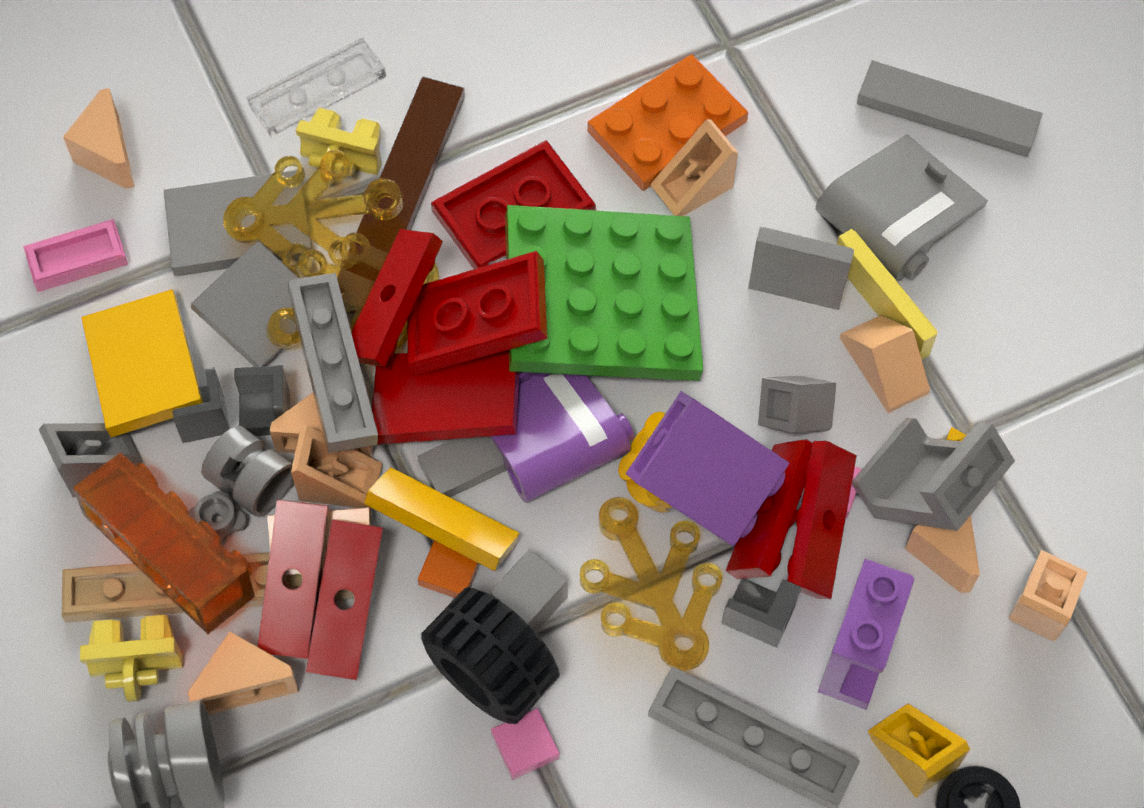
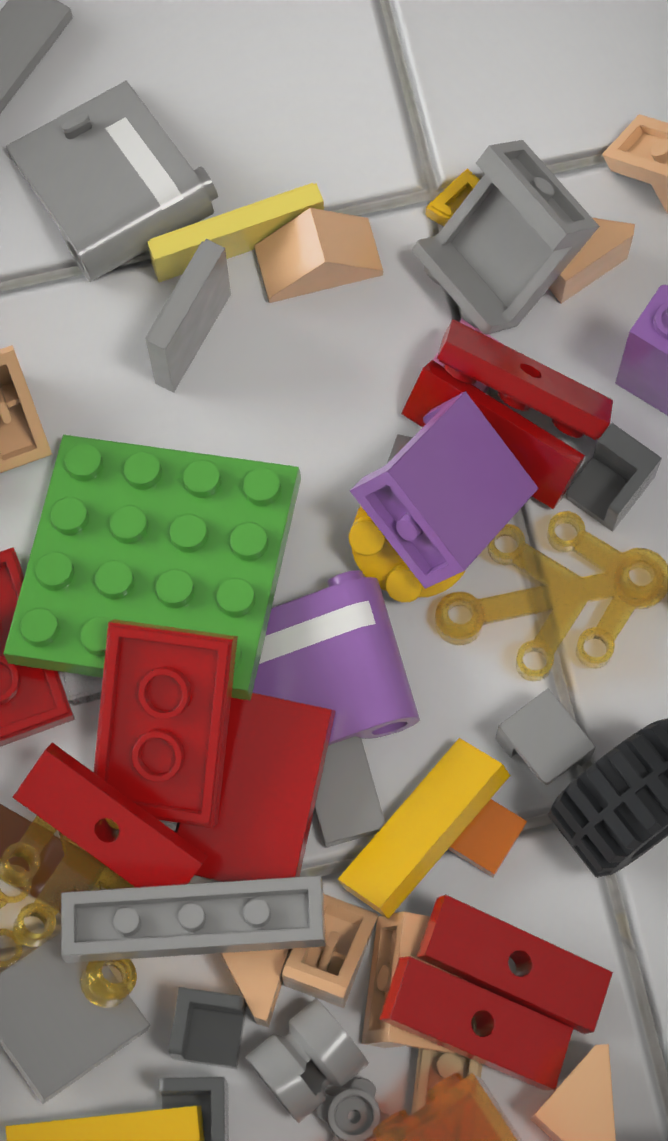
camera: 75 degrees left, 10 degrees up
(796, 404) = (358, 372): light grey panel -> none

